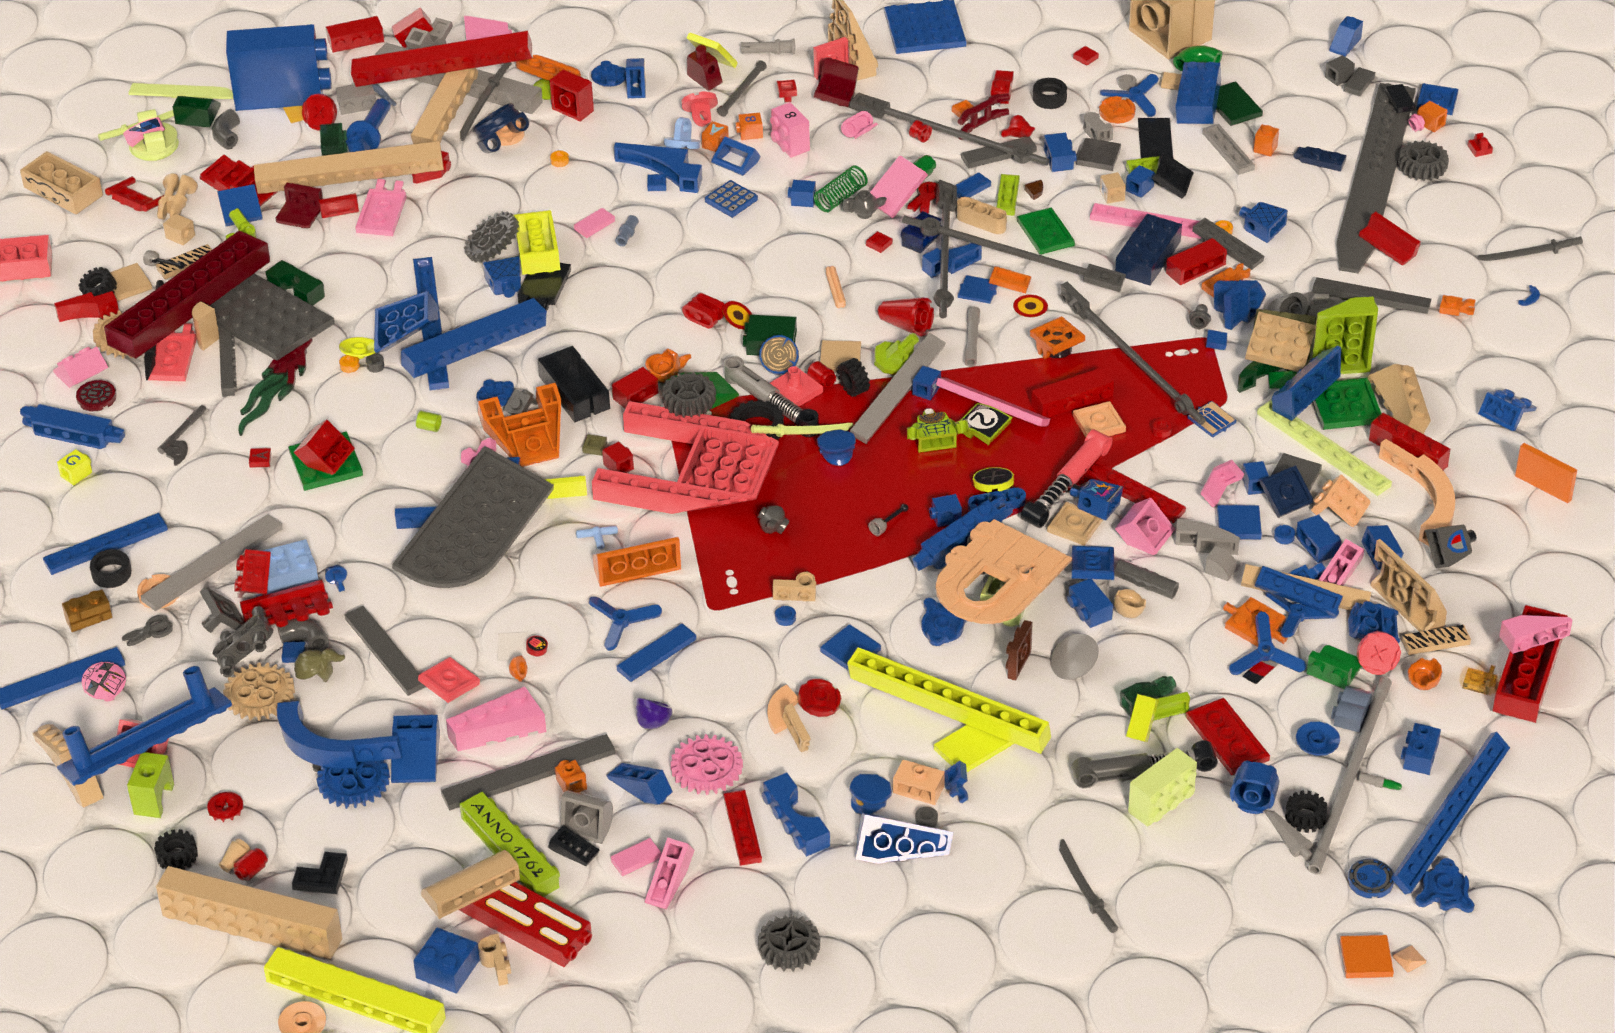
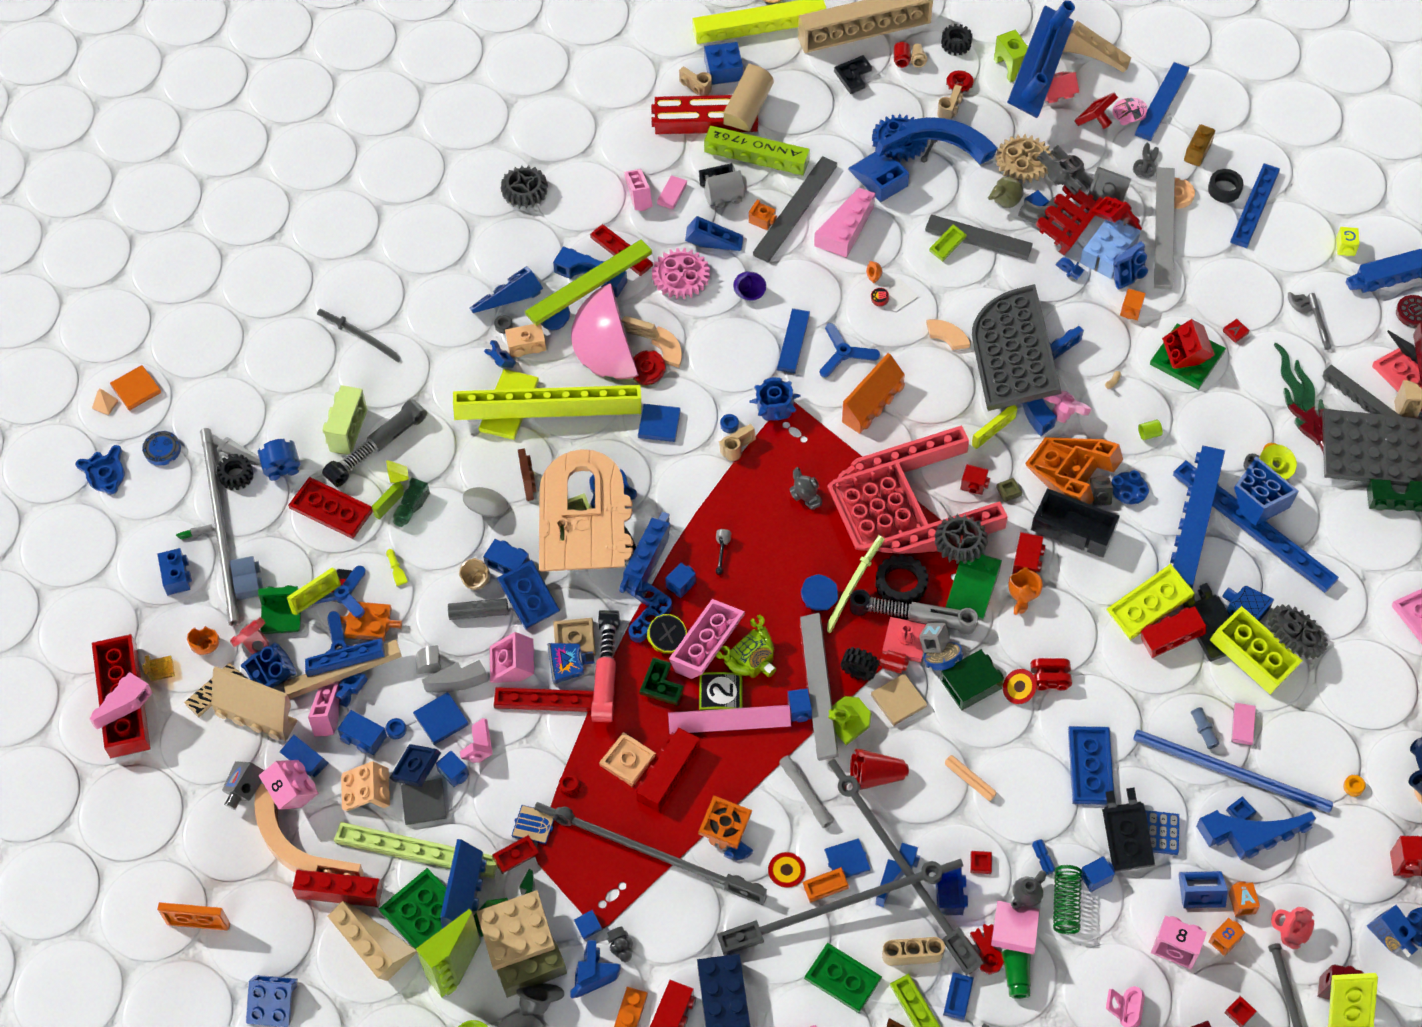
camera: 145 degrees right, 15 degrees up
(139, 688) = (1096, 111): none -> red tile
(266, 781) = (948, 105): none -> tan plate
(286, 532) = (1130, 266): none -> blue slope
(322, 516) = (1132, 304): none -> orange brick
(411, 476) = (1112, 382): none -> tan piece
(421, 655) = (947, 243): none -> lime tile
(449, 679) = (911, 237): coral tile -> none
(509, 586) = (949, 333): none -> light nougat tile
(576, 310) = (1150, 601): none -> neon yellow tile
(582, 284) = (1173, 631): none -> red brick
(597, 533) = (928, 410): light blue piece -> none
(637, 204) = (1233, 771): none -> axle
(682, 136) = (1262, 865): light blue tile -> none
(729, 599) = (775, 399): none -> blue brick
(735, 254) = (1090, 764): none -> blue tile
(755, 200) = (1127, 833): none -> black tile
(773, 367) = (934, 637): none -> light grey brick
(812, 785) = (588, 282): none -> lime tile
(830, 222) = (1042, 854): none -> blue piece
(839, 744) = (600, 336): none -> bright pink brick
(965, 446) = (705, 639): none -> bright pink slope
(1032, 449) = (656, 685): none -> dark green brick
(1200, 648) = (398, 573): none -> neon yellow piece
(1243, 401) = (515, 854): none -> red plate
(1293, 654) = (313, 591): none -> neon yellow tile
(1318, 738) = (255, 529): blue dish -> none
(1410, 514) = (288, 784): none -> bright pink brick
(1450, 813) = (125, 531): blue plate -> none

